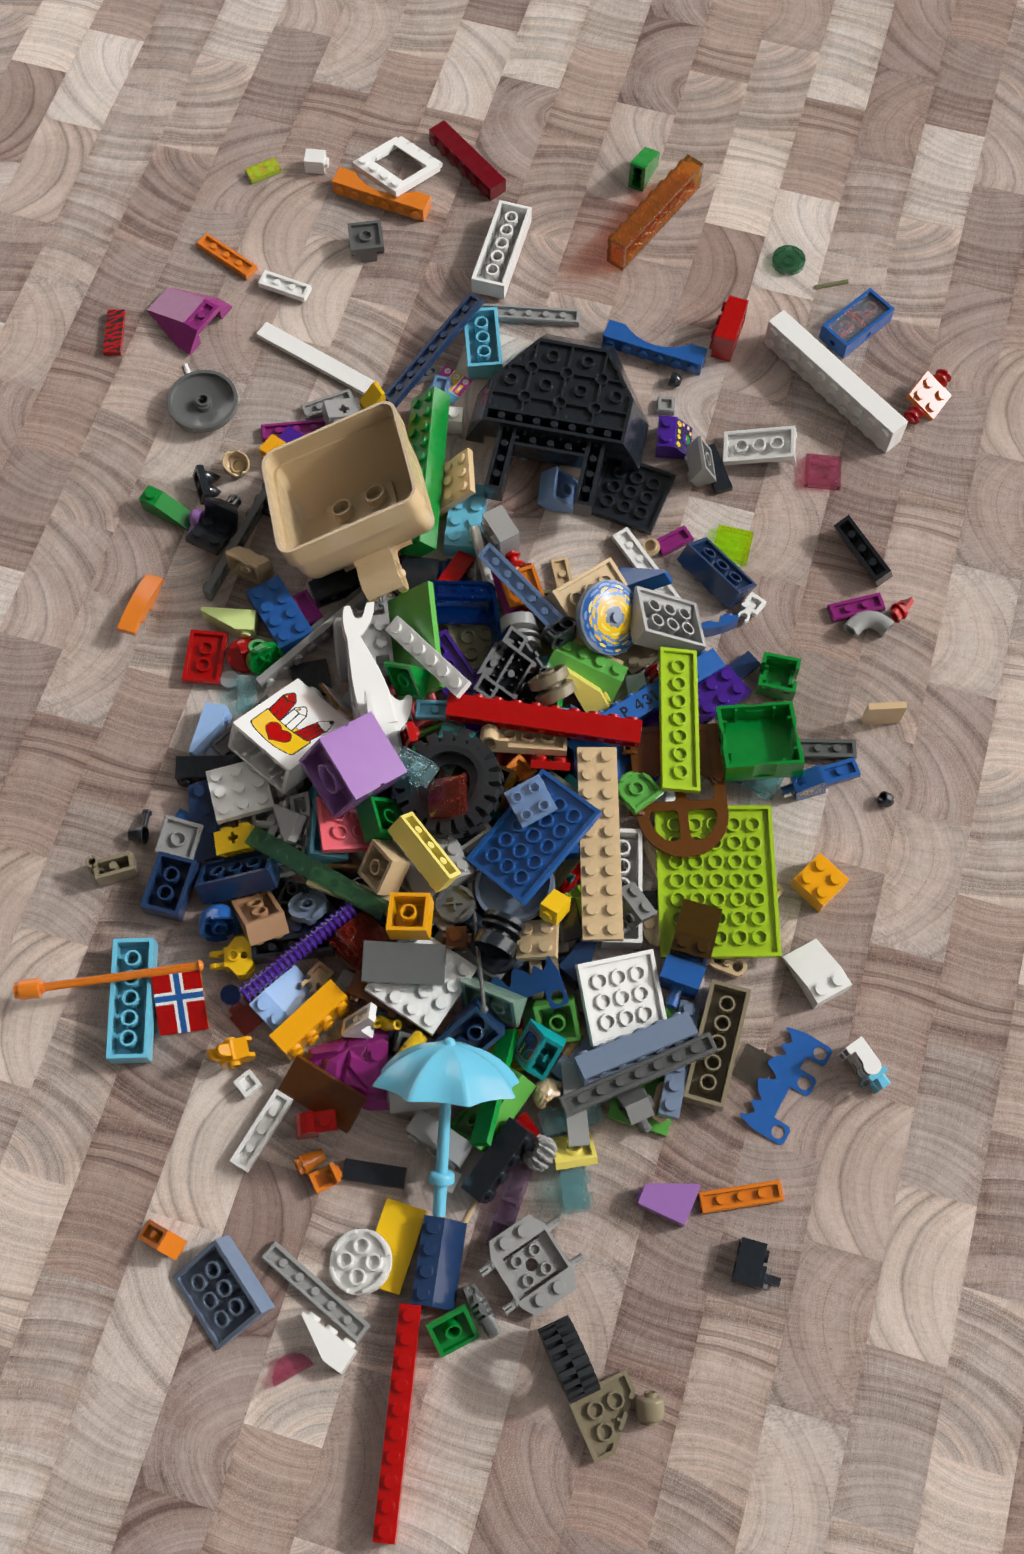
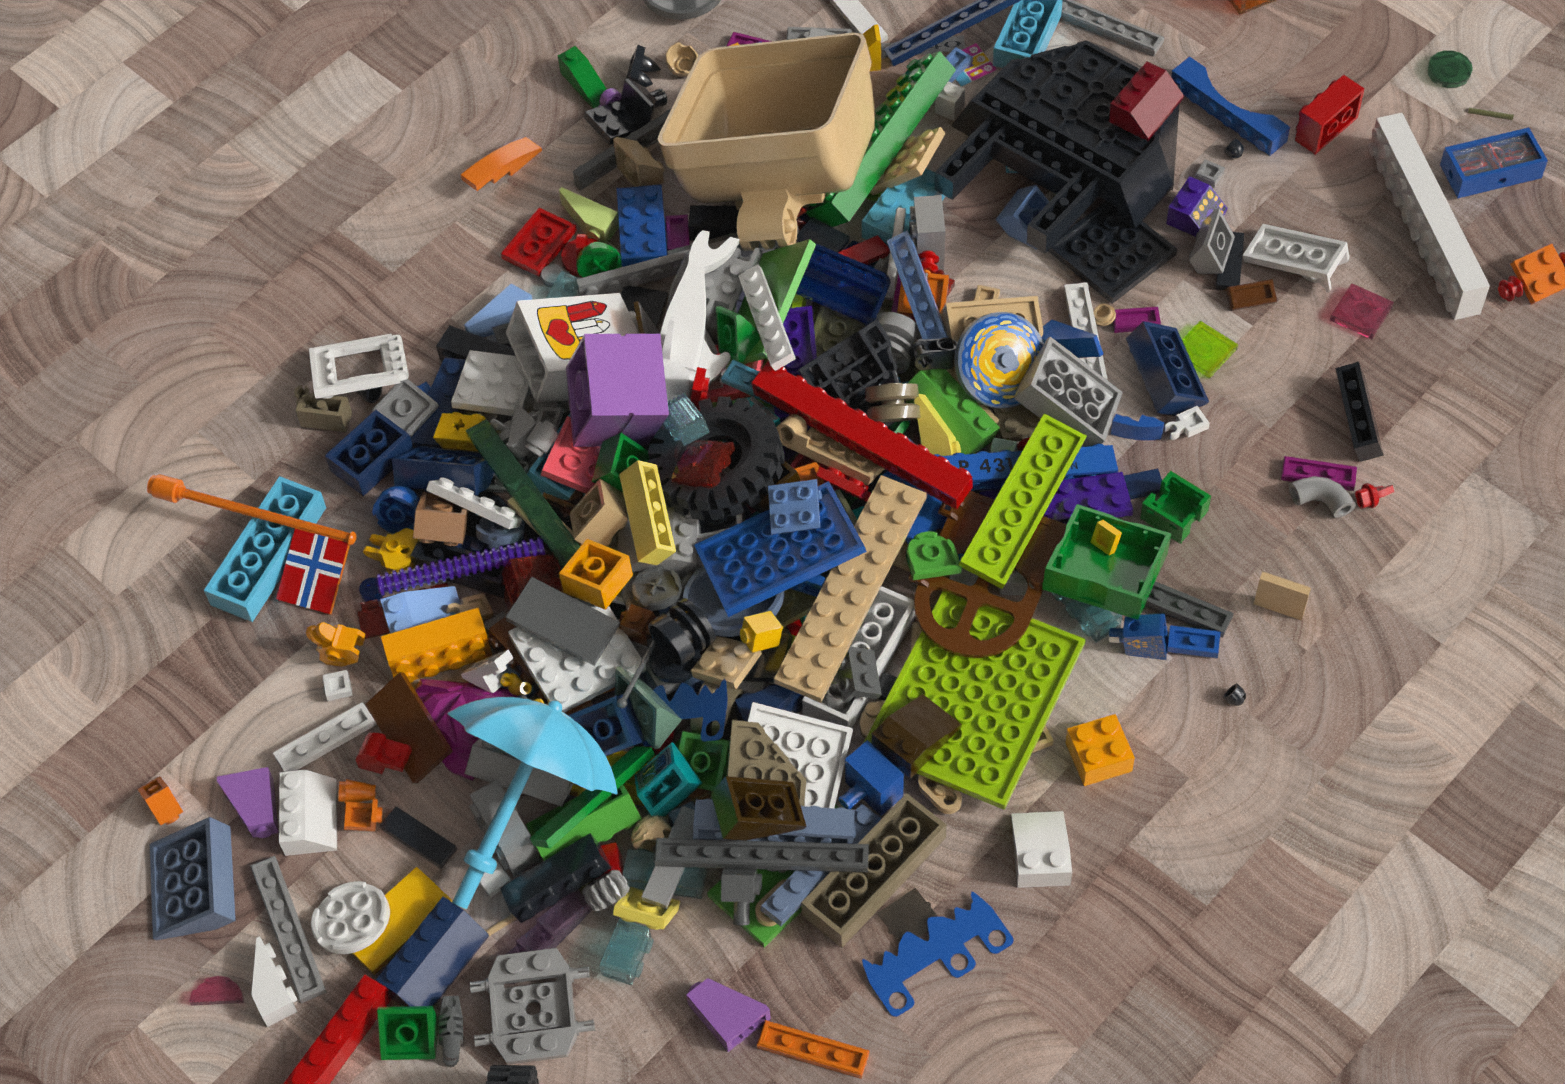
camera: 30 degrees right, 10 degrees down
(102, 840) = (324, 369): none -> white hinge
(234, 1205) = (253, 800): none -> medium lavender slope
(276, 896) = (482, 506): none -> white plate
(282, 1195) = (307, 812): none -> white slope
(308, 824) = (542, 438): none -> light grey brick
(607, 1011) = (758, 757): none -> dark tan plate
(611, 372) = (1145, 101): none -> dark red slope
(624, 1045) = (756, 808): none -> dark brown slope
(743, 489) = (1251, 295): none -> reddish brown tile
(747, 722) = (1106, 537): none -> yellow plate
(866, 1065) = (1042, 981): white hips -> none

